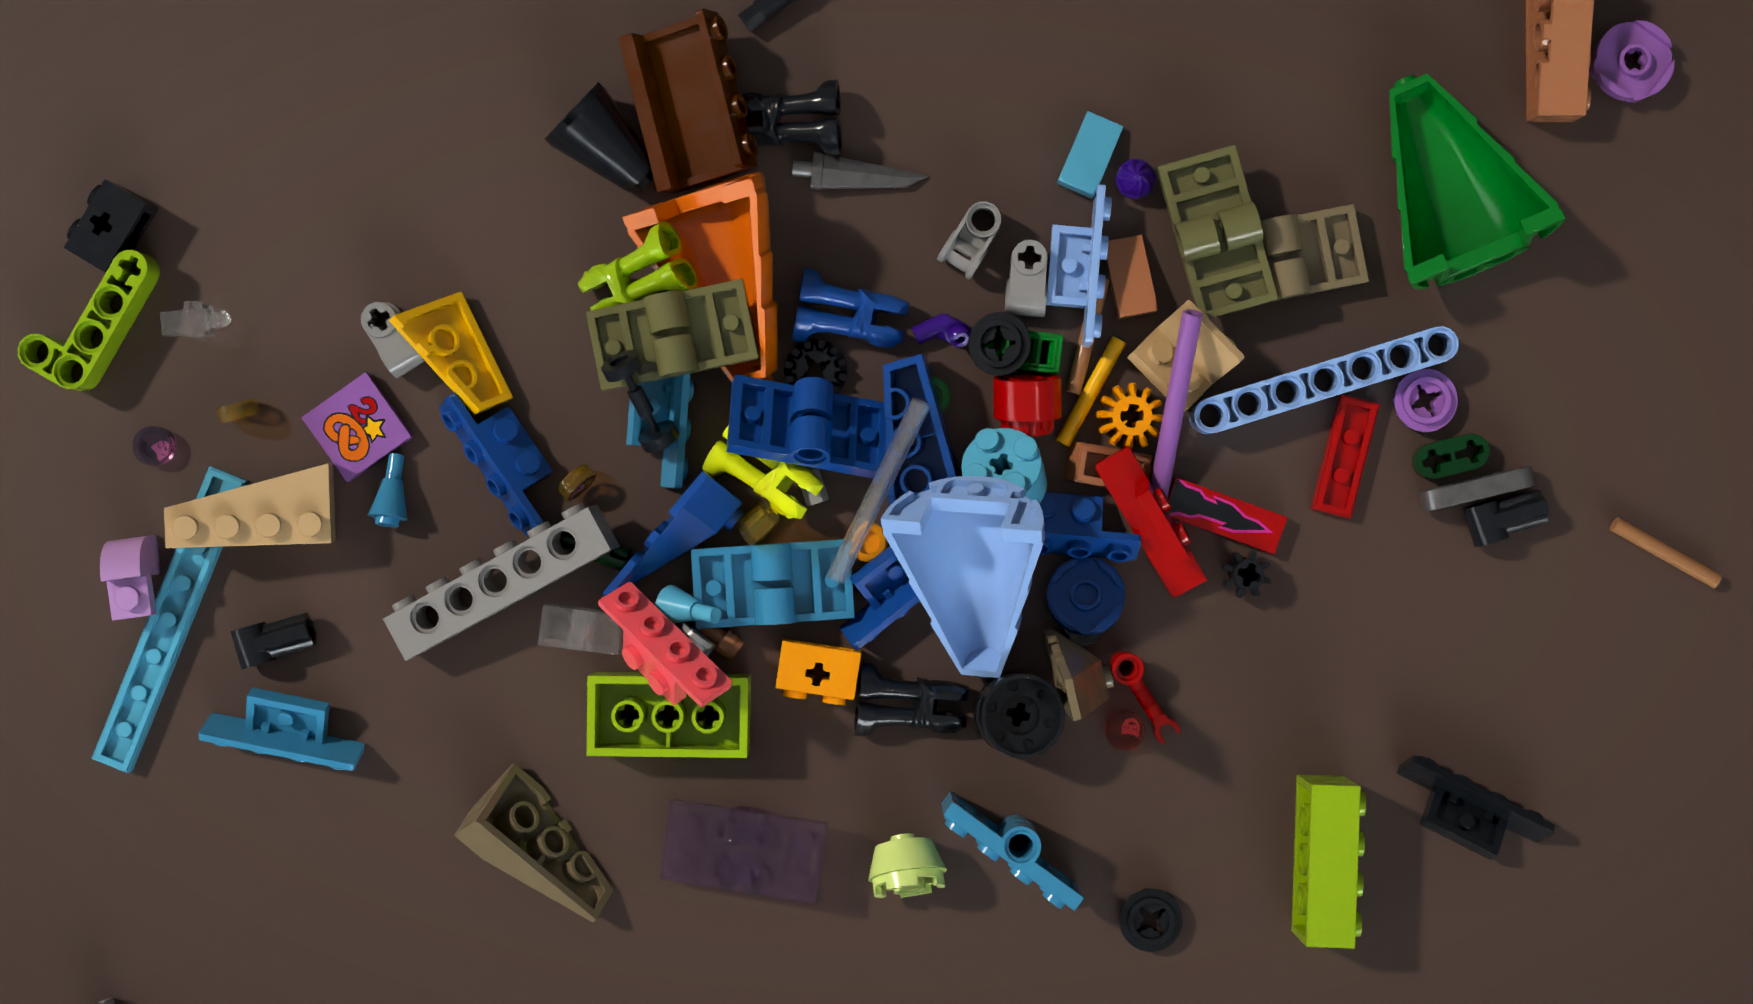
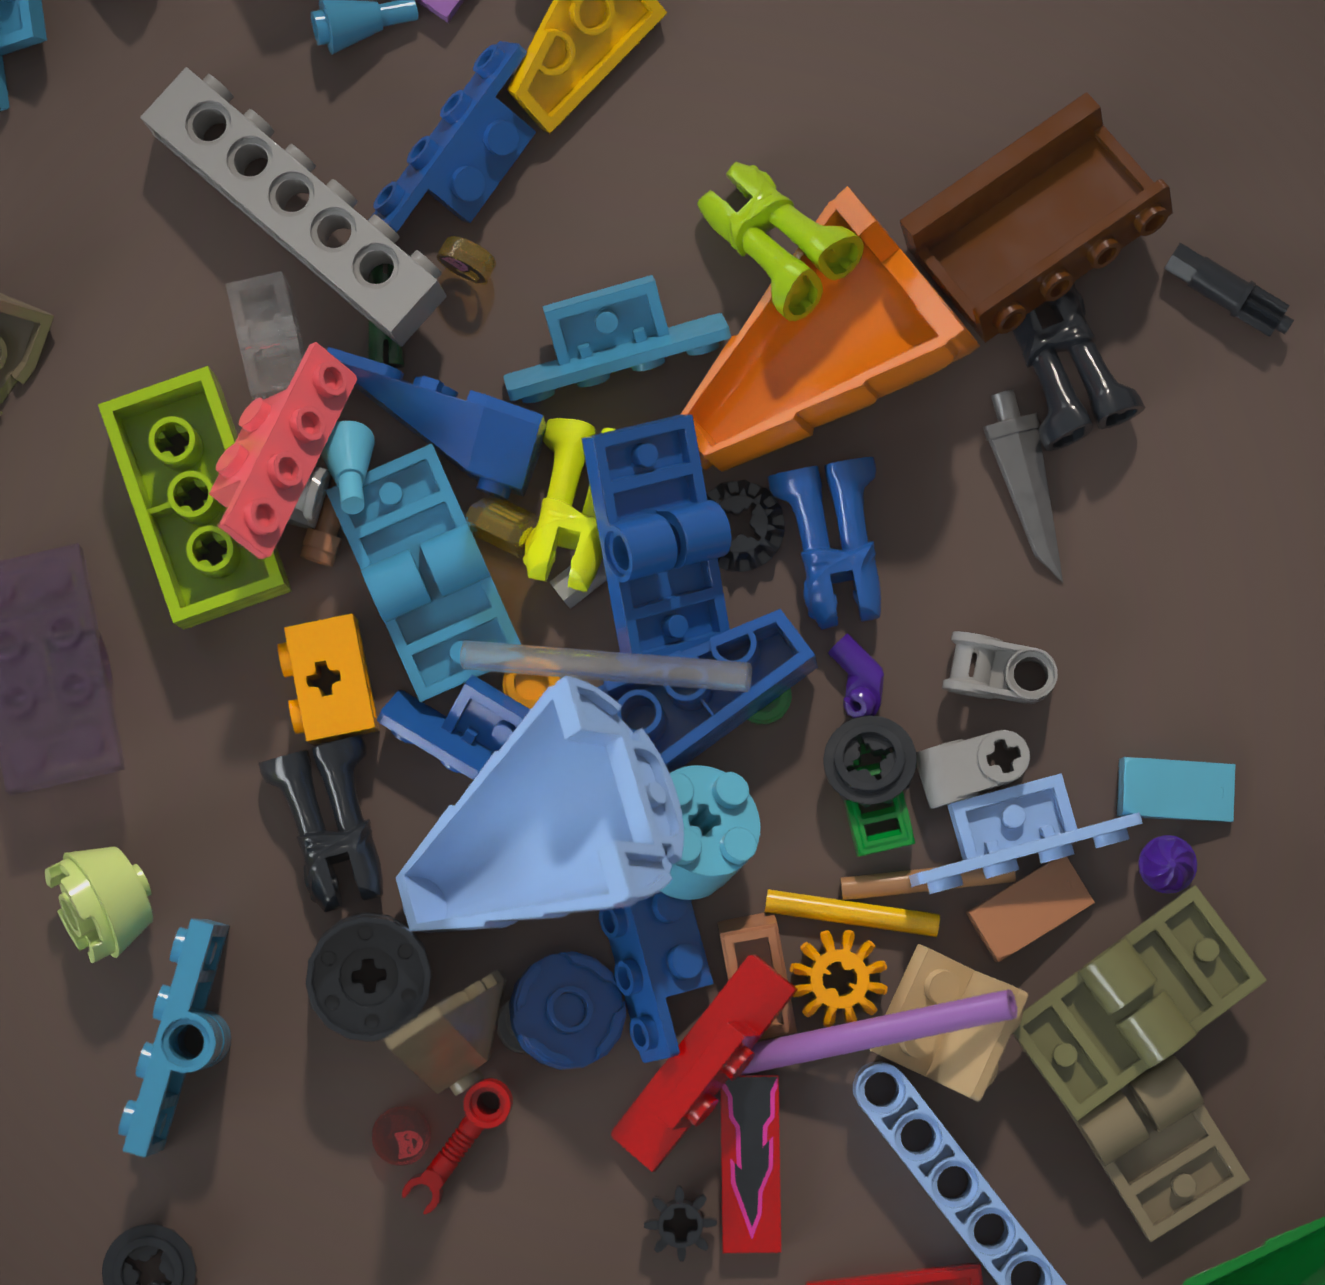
camera: 70 degrees right, 5 degrees down
(603, 141) = (940, 123): black cone -> none
(658, 434) = (571, 341): black wheel -> none
(676, 332) = (714, 310): olive plate -> none
(1028, 402) = (804, 829): red piece -> none

